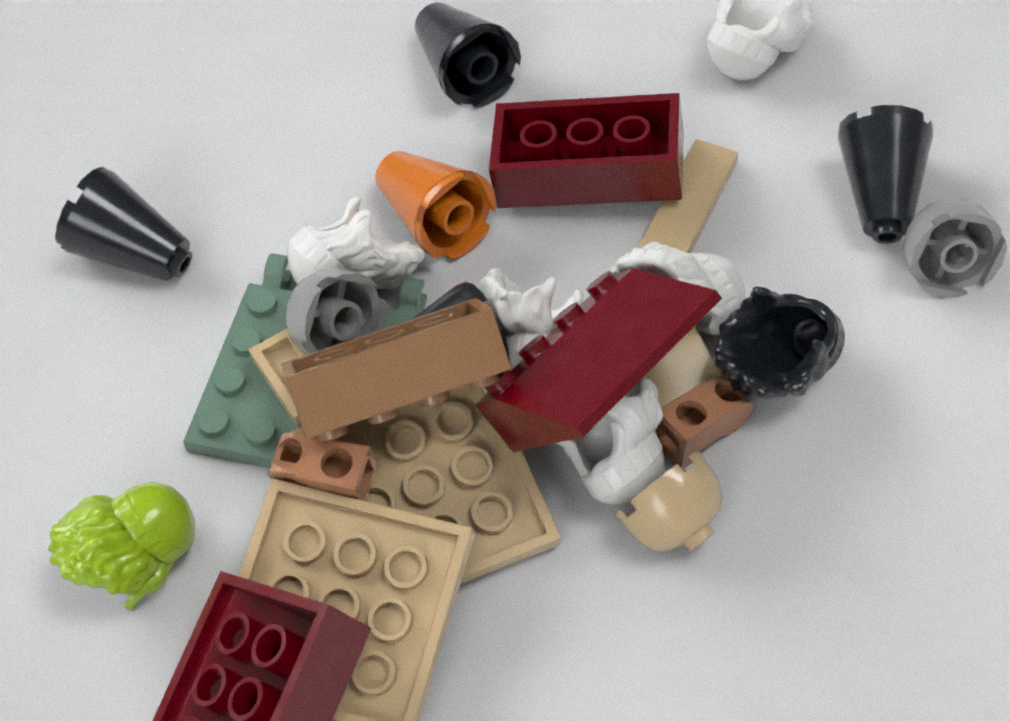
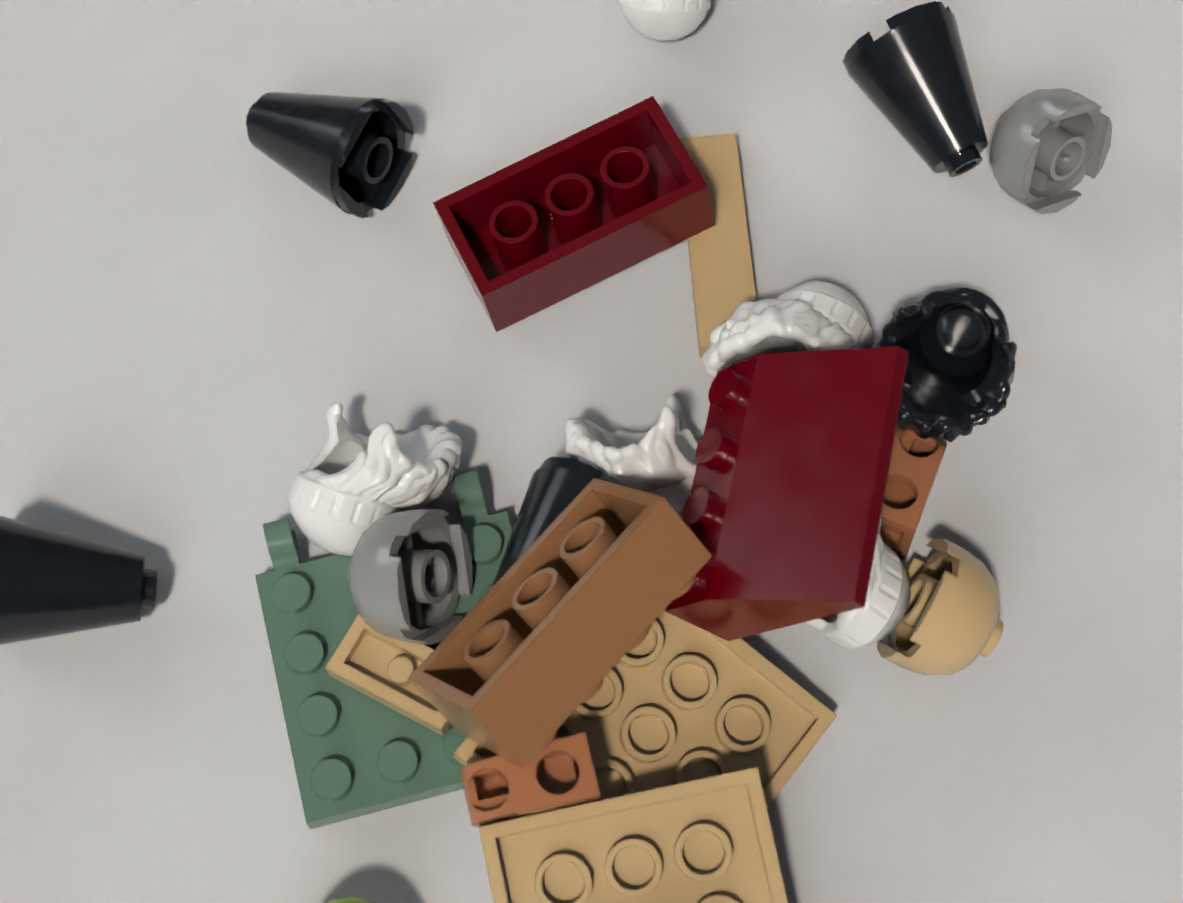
camera: 30 degrees left, 10 degrees up
(437, 202) = (422, 360): orange cone -> none

